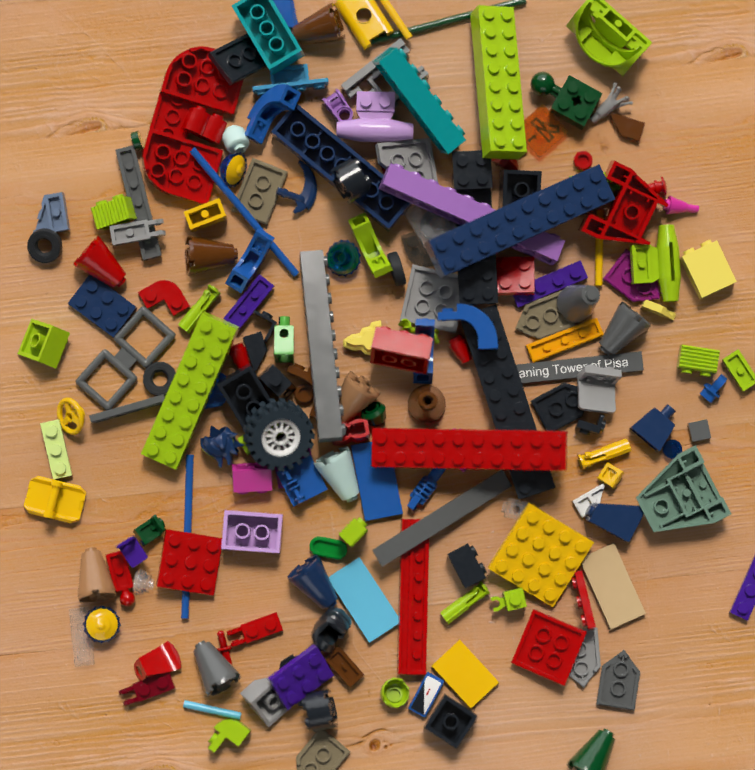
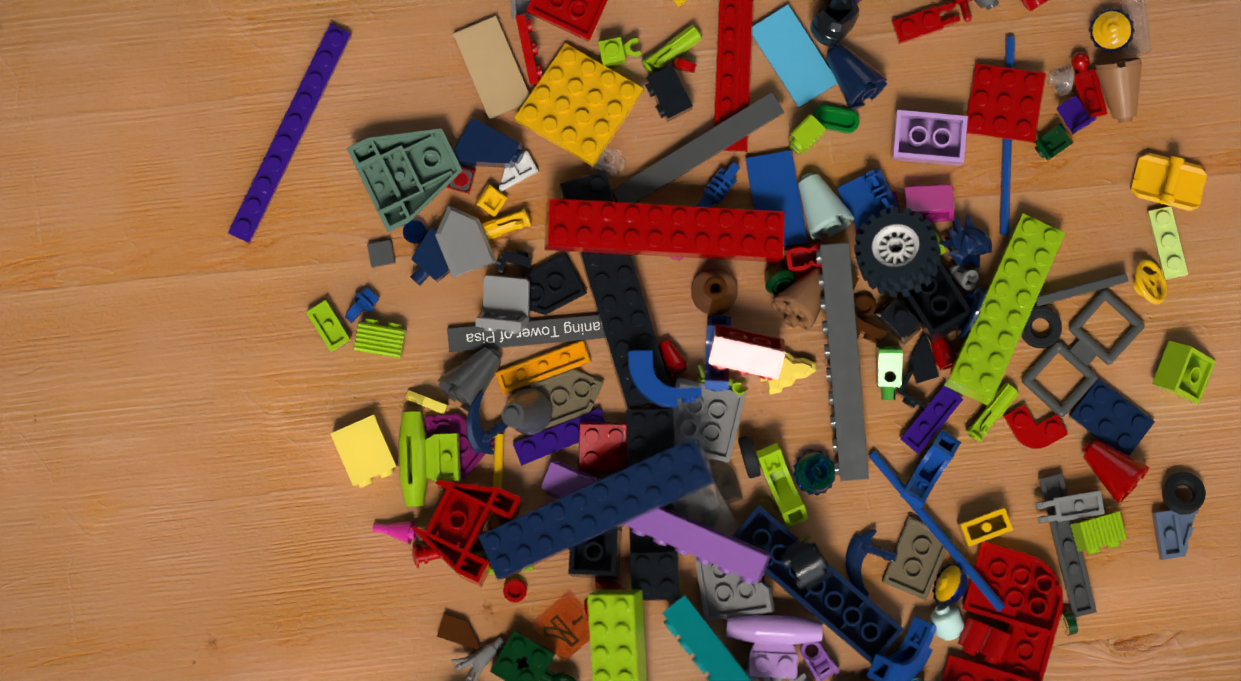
camera: 170 degrees left, 0 degrees up
(207, 254) = (981, 478): reddish brown cone -> none
(212, 396) = (978, 299): none -> dark blue piece
(223, 417) = (963, 276): none -> light grey bush
(453, 589) = (684, 65): none -> red tile
(617, 279) = (476, 436): none -> dark blue piece
(632, 491) = (463, 181): none -> tile
(633, 438) = (463, 242): none -> light grey tile

